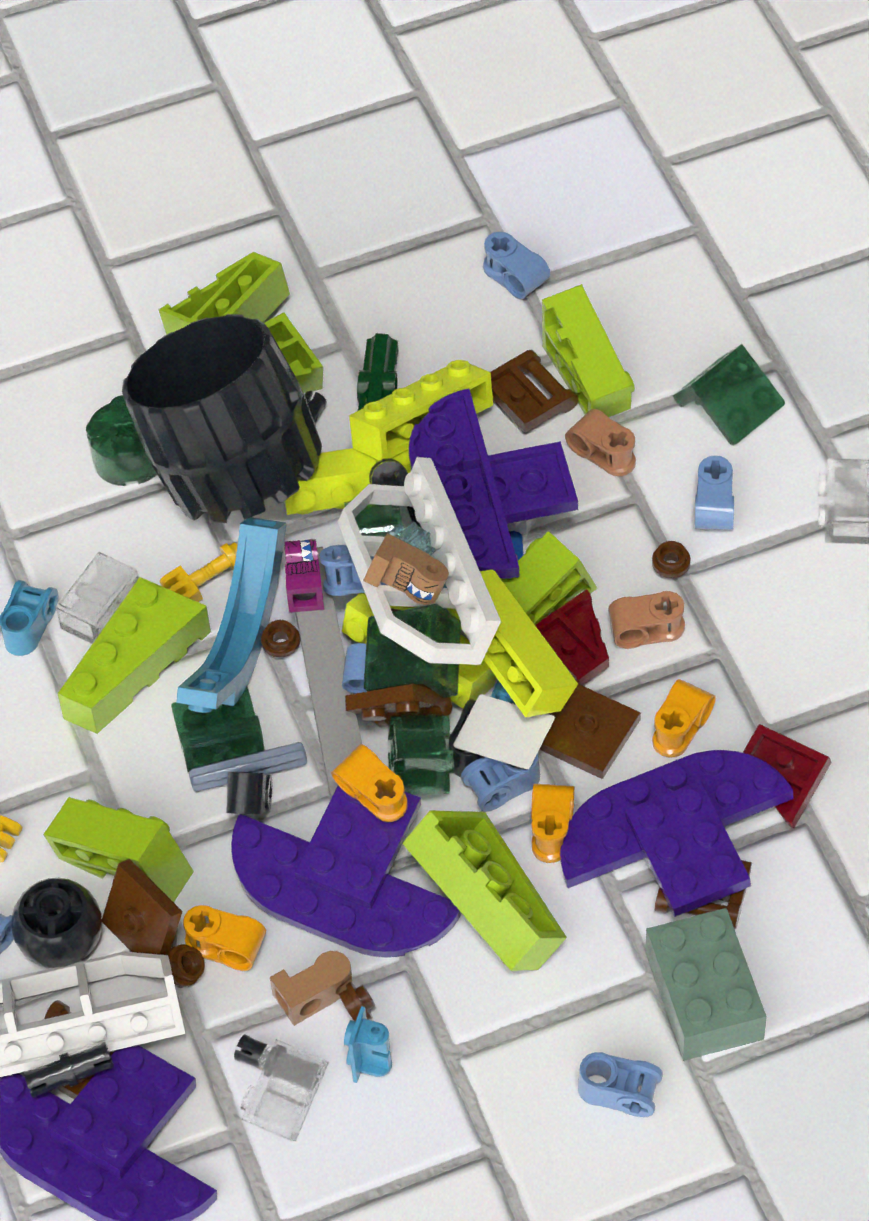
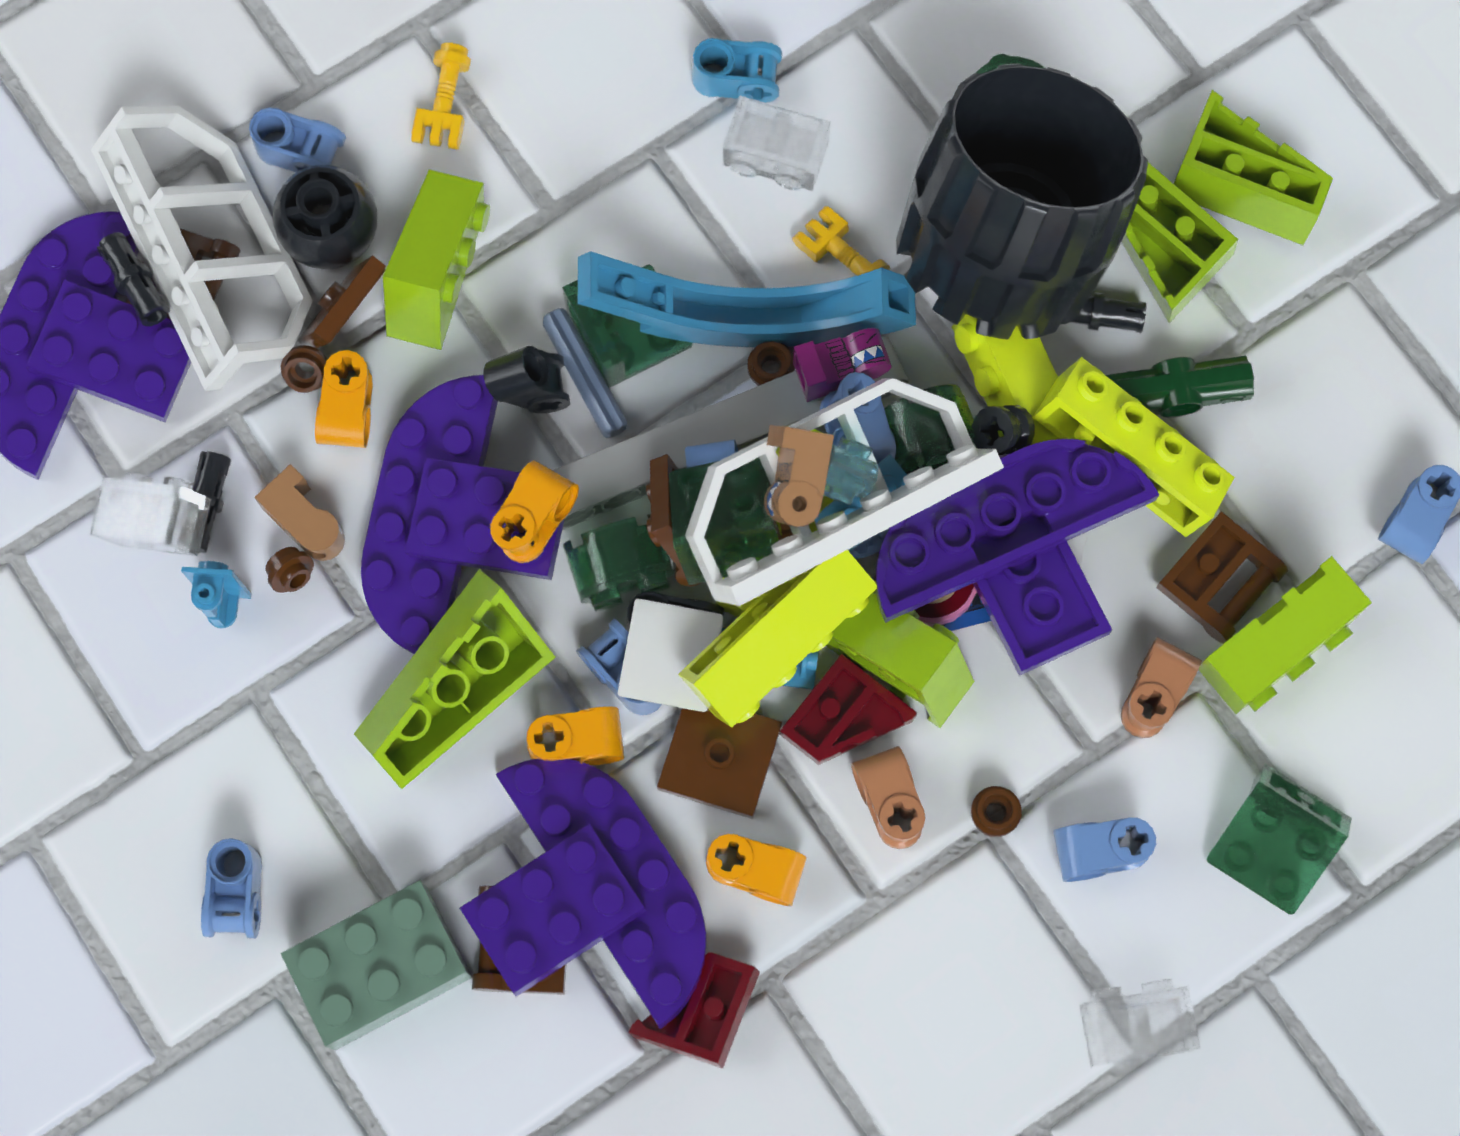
camera: 75 degrees right, 20 degrees up
(130, 652) = (705, 198): lime wedge -> none

